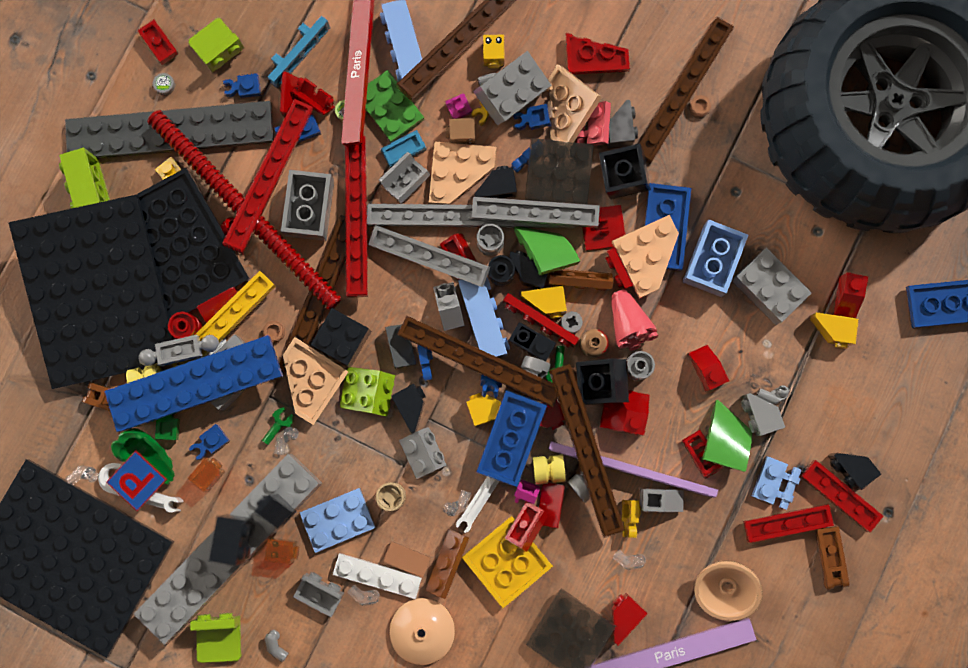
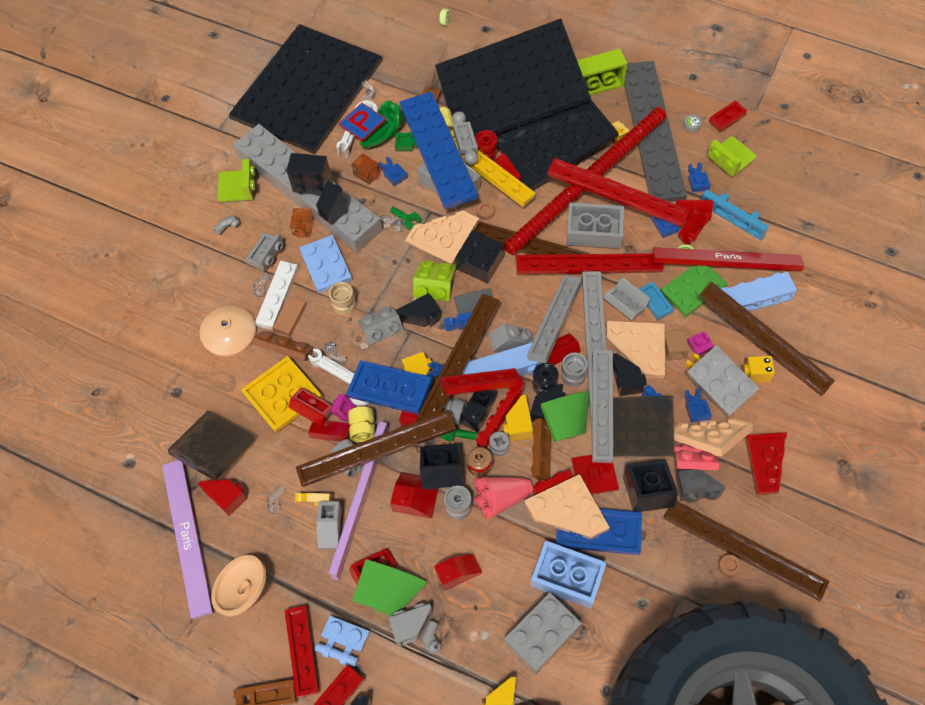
camera: 90 degrees right, 20 degrees down
(512, 337) = (480, 381): none -> red plate

